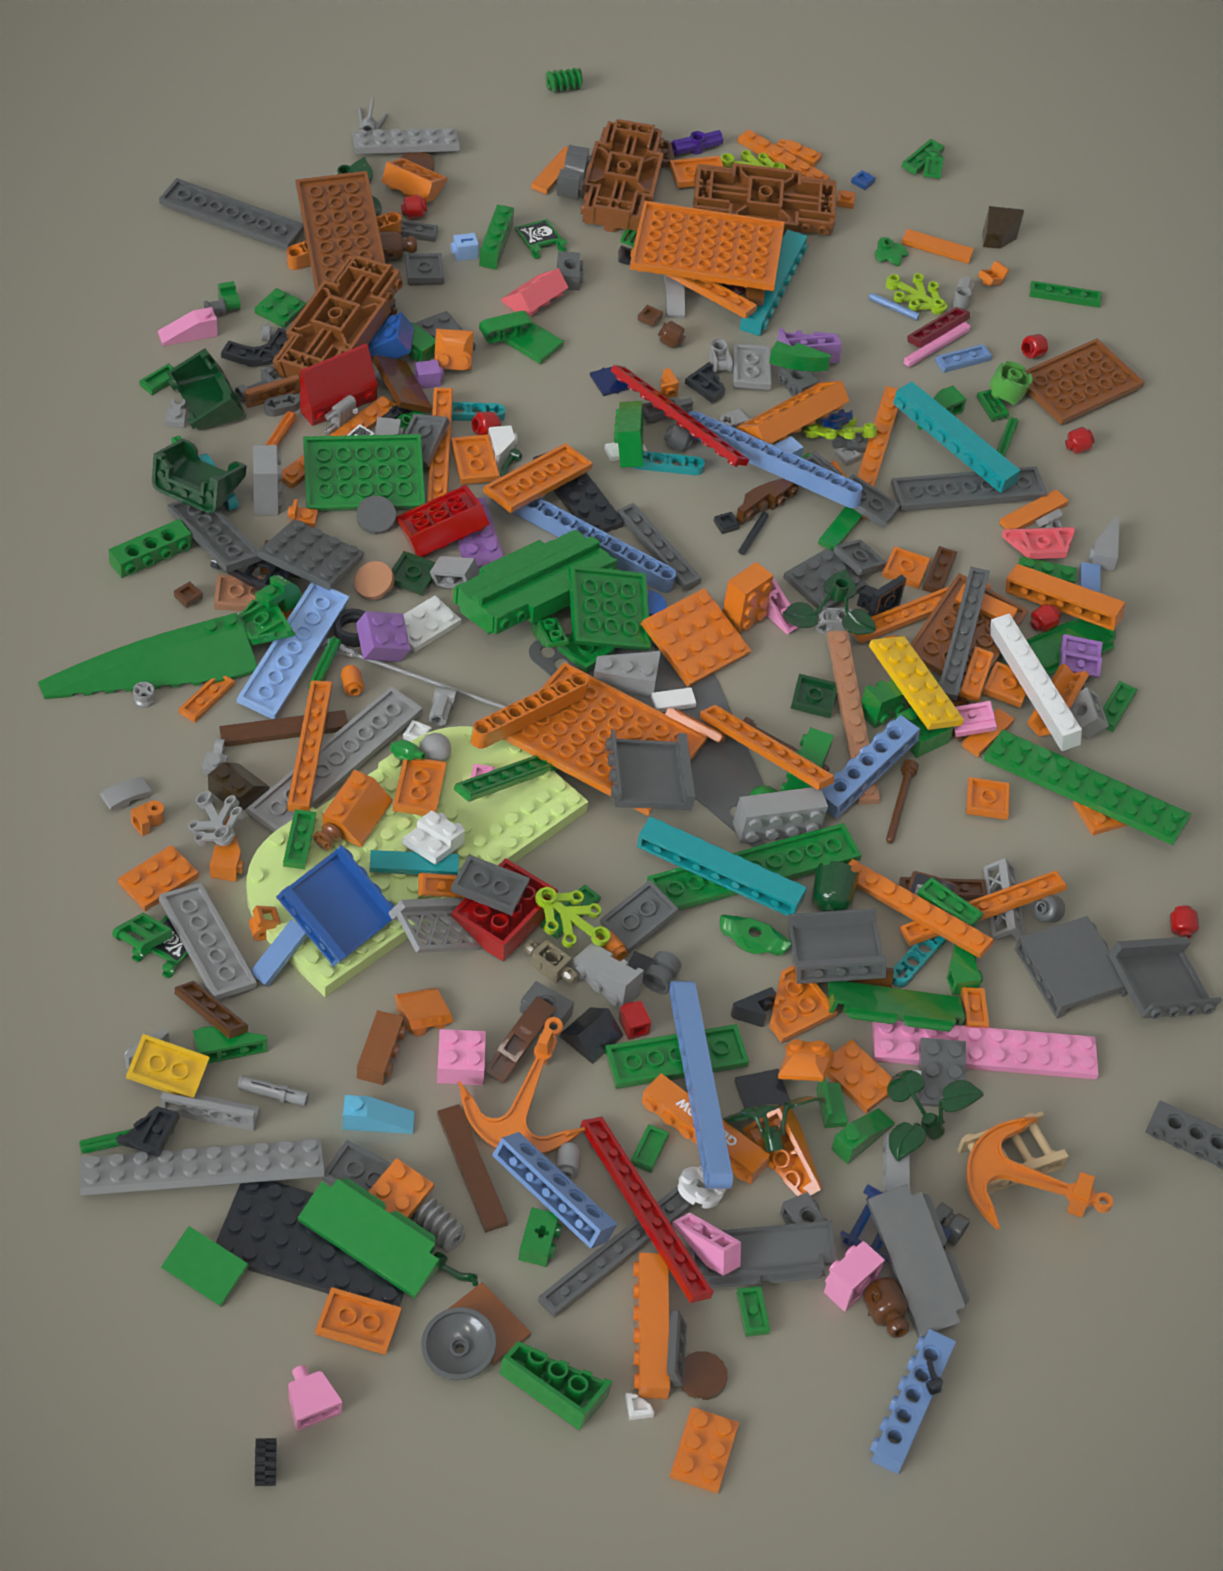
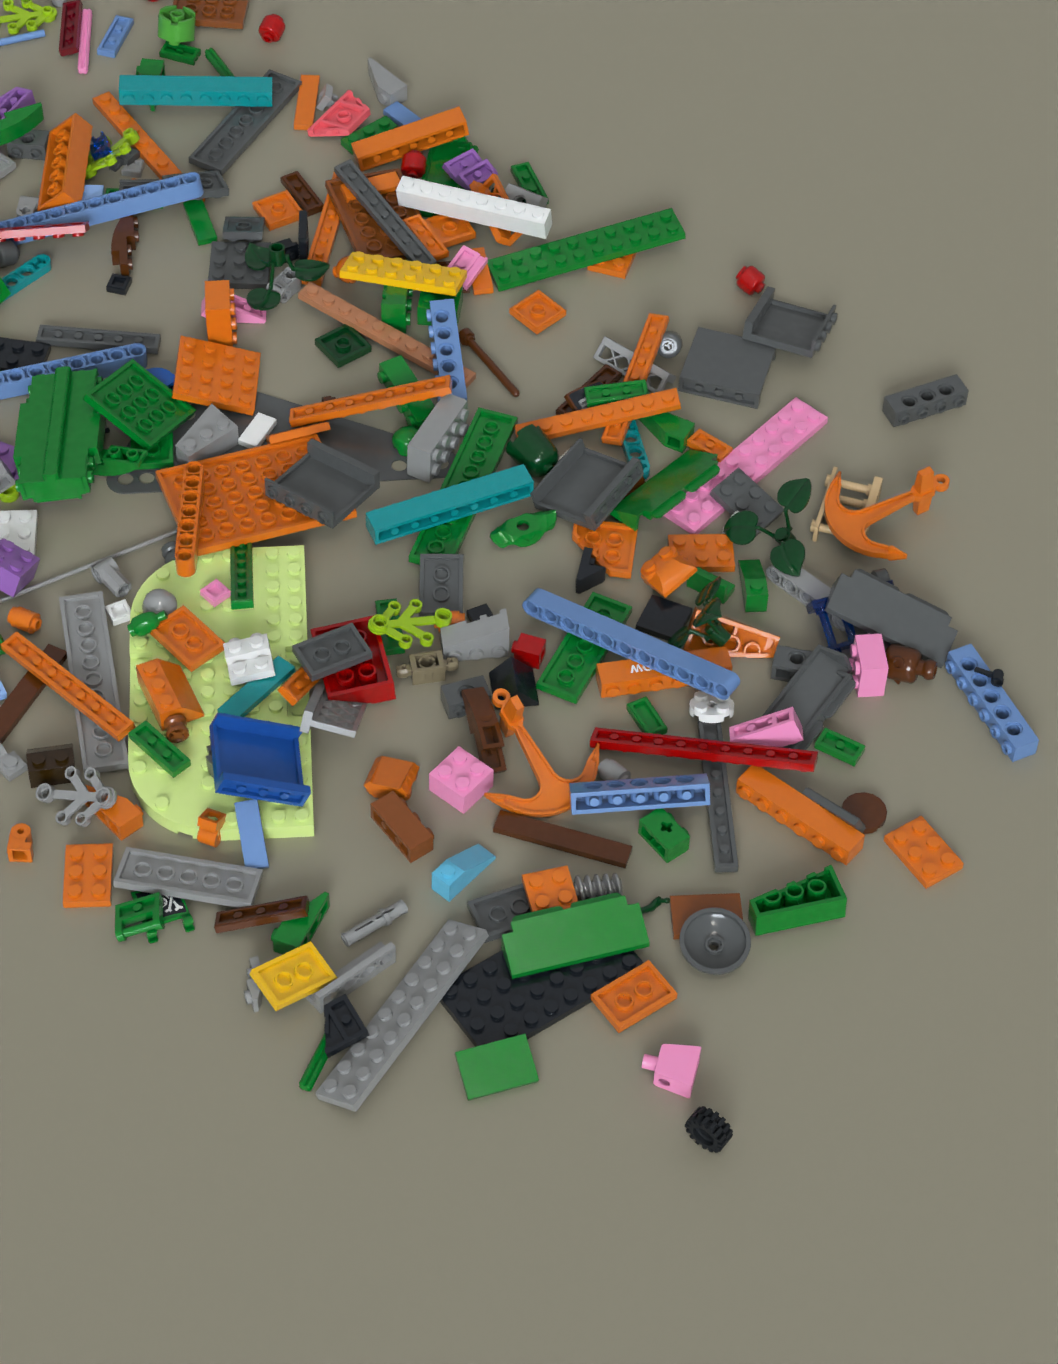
camera: 45 degrees left, 0 degrees up
(638, 1407) = (855, 869): white tile -> none
(661, 972) = (503, 597): dark grey wheel -> none
(753, 533) = (147, 275): black bar -> none

